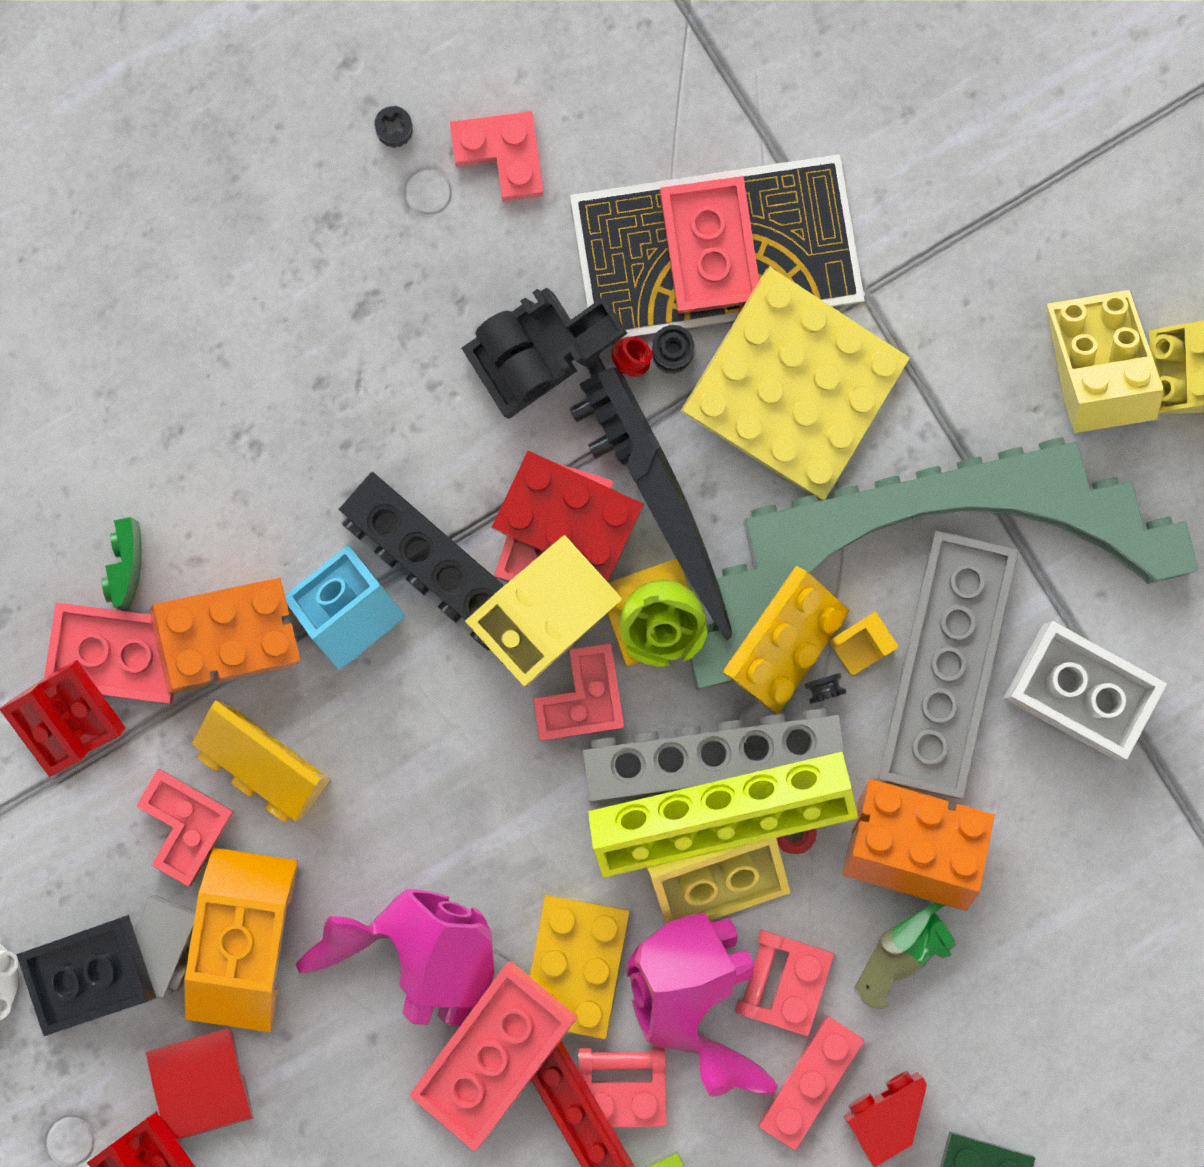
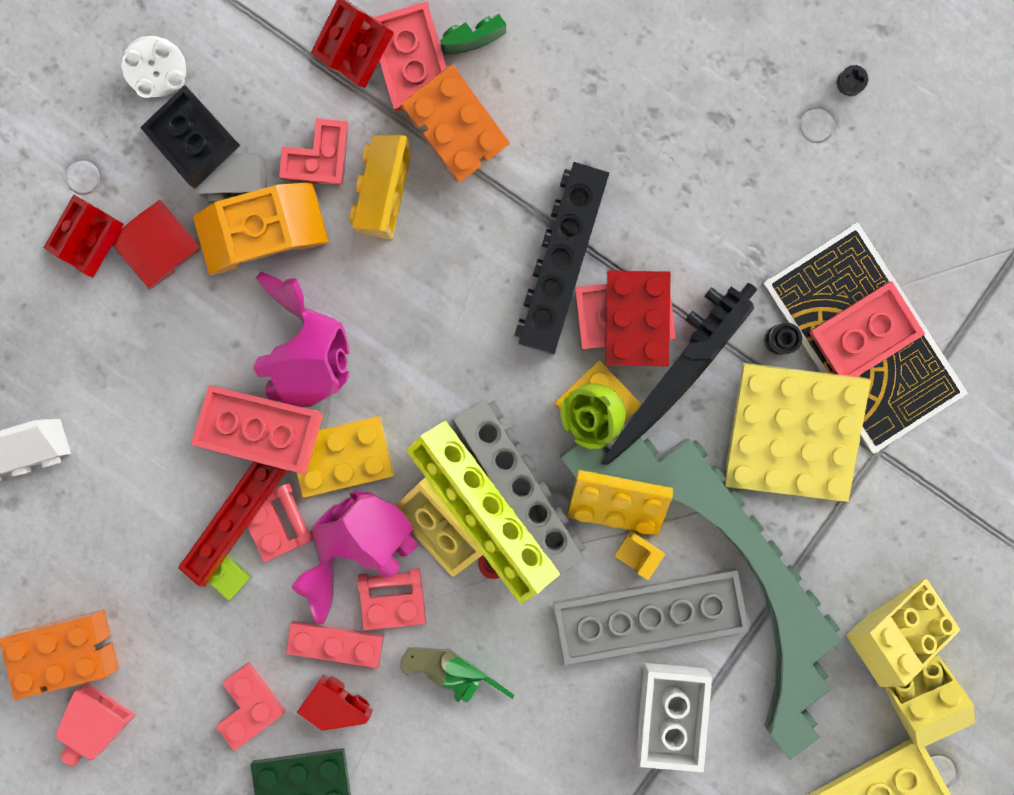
camera: 75 degrees right, 5 degrees up
(343, 607) = (509, 196): medium azure slope -> none
(503, 139) = (876, 162): coral plate -> none
(534, 346) = (743, 243): black plate -> none
(543, 610) = (566, 330): light yellow slope -> none
(592, 706) = (517, 391): coral plate -> none
(632, 356) = (765, 313): red plate -> none
(825, 686) = (598, 541): black bush -> none
(918, 845) = (521, 651): orange piece -> none

